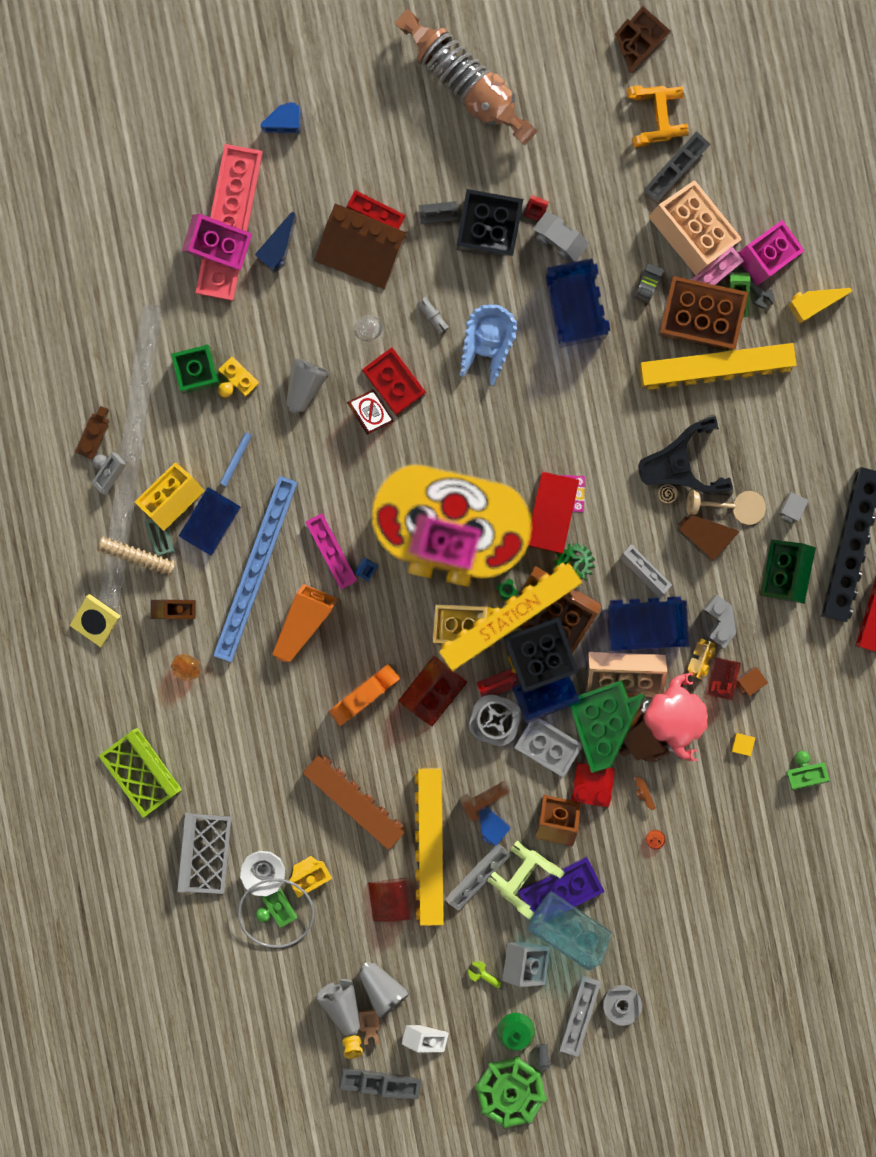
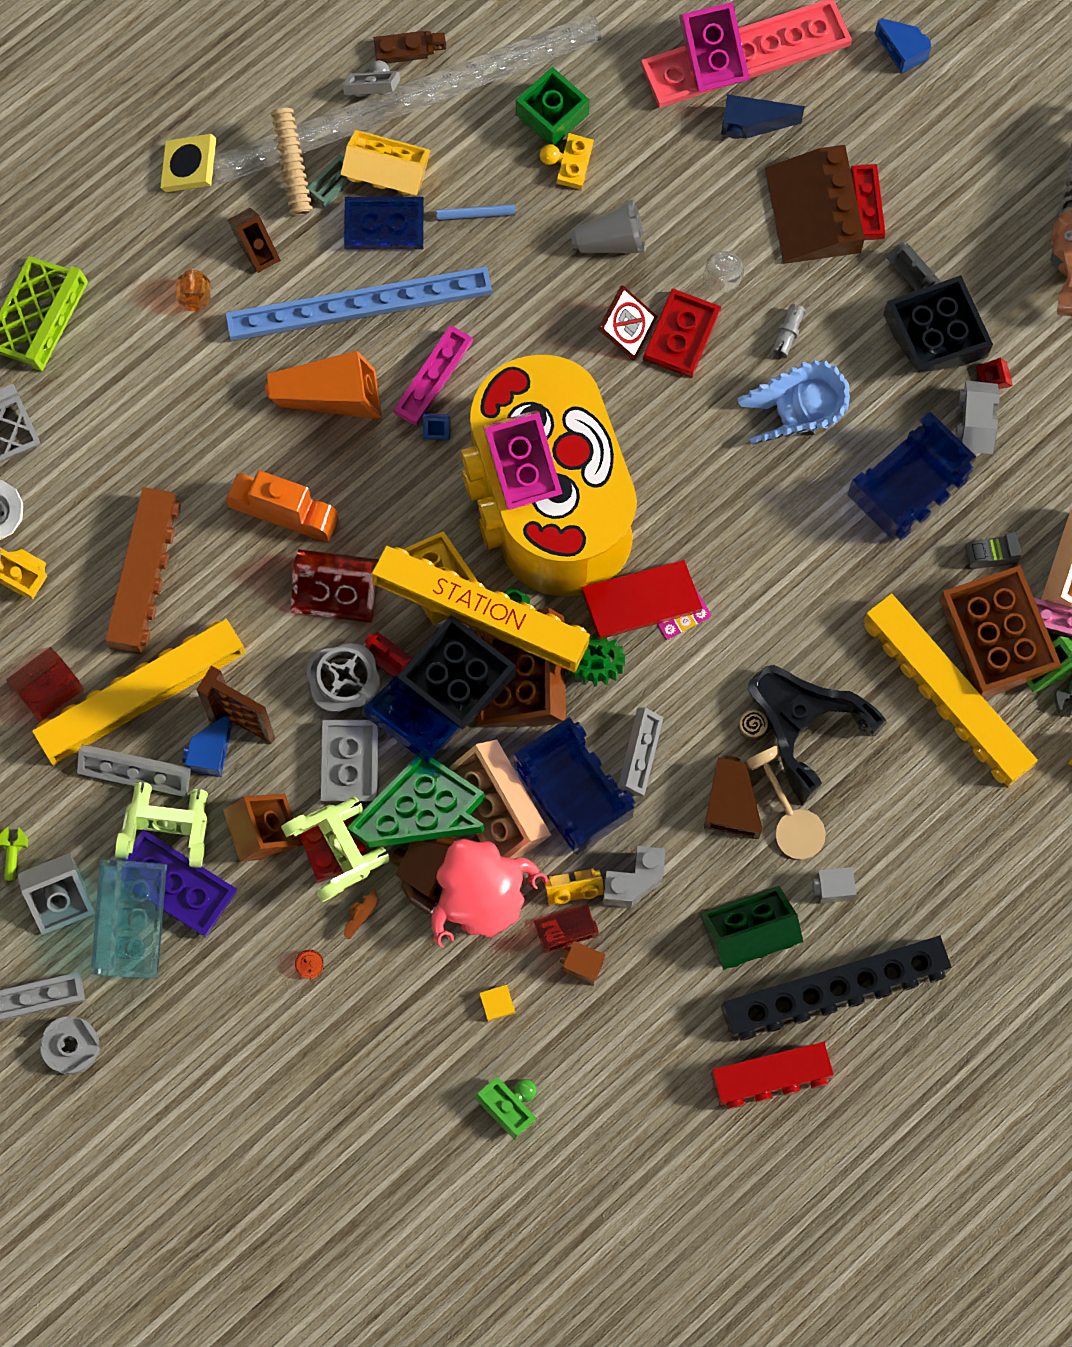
camera: 55 degrees right, 15 degrees down
(618, 781) = (331, 824): none -> yellowish green connector

